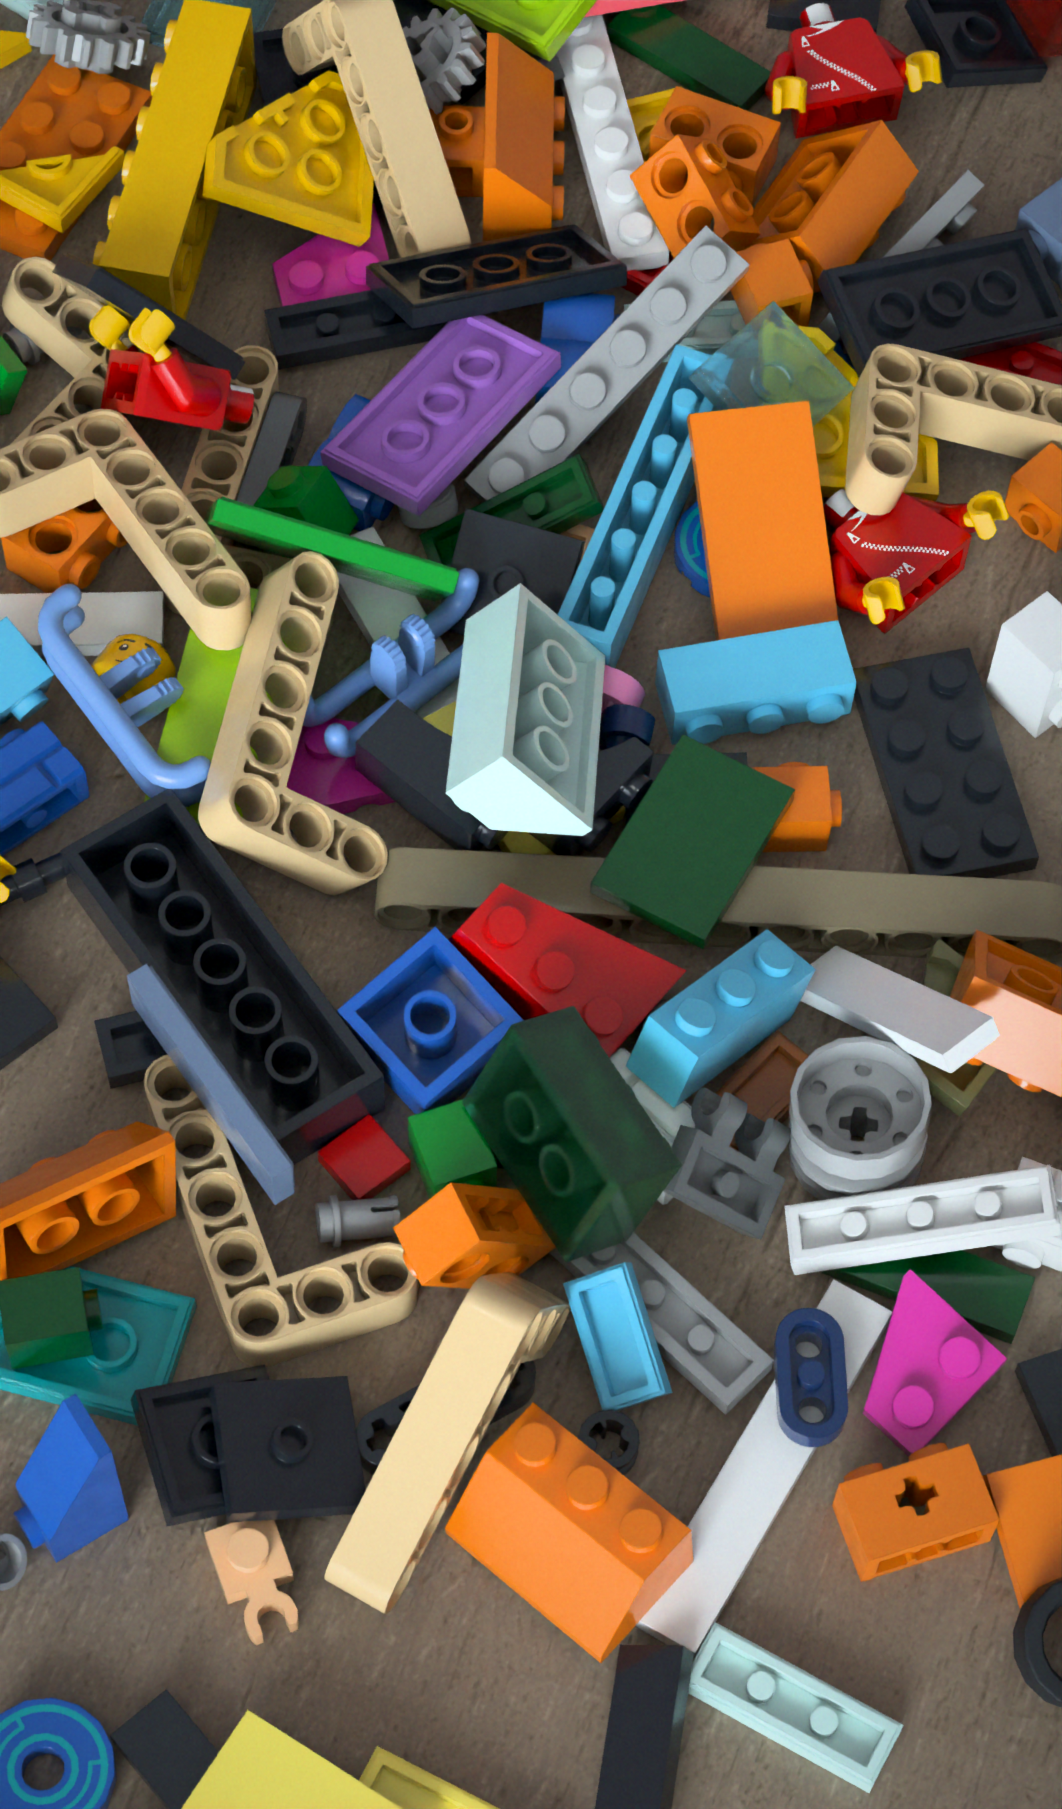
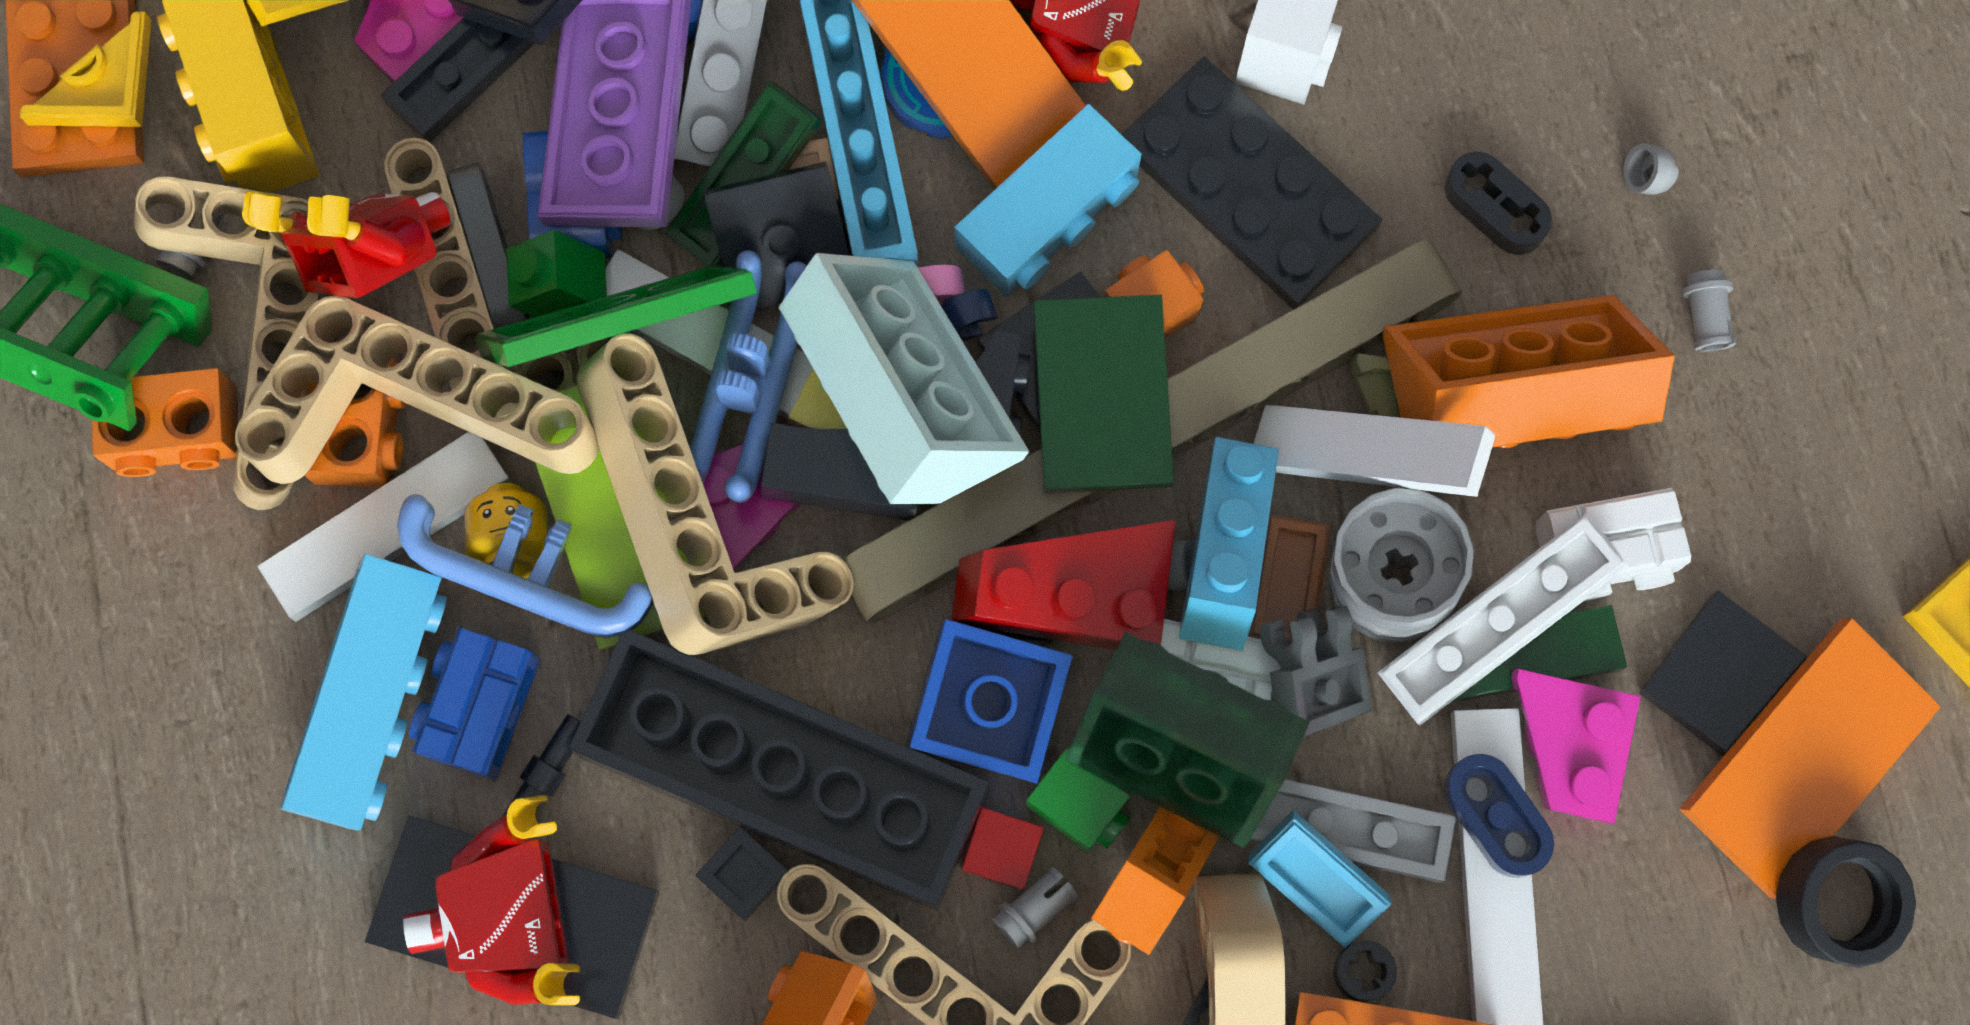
camera: 30 degrees left, 15 degrees up
(130, 303) = (292, 178): black tile -> none
(212, 1083) = (848, 883): sand blue tile -> none
(895, 1538) = (1678, 857): orange brick -> none

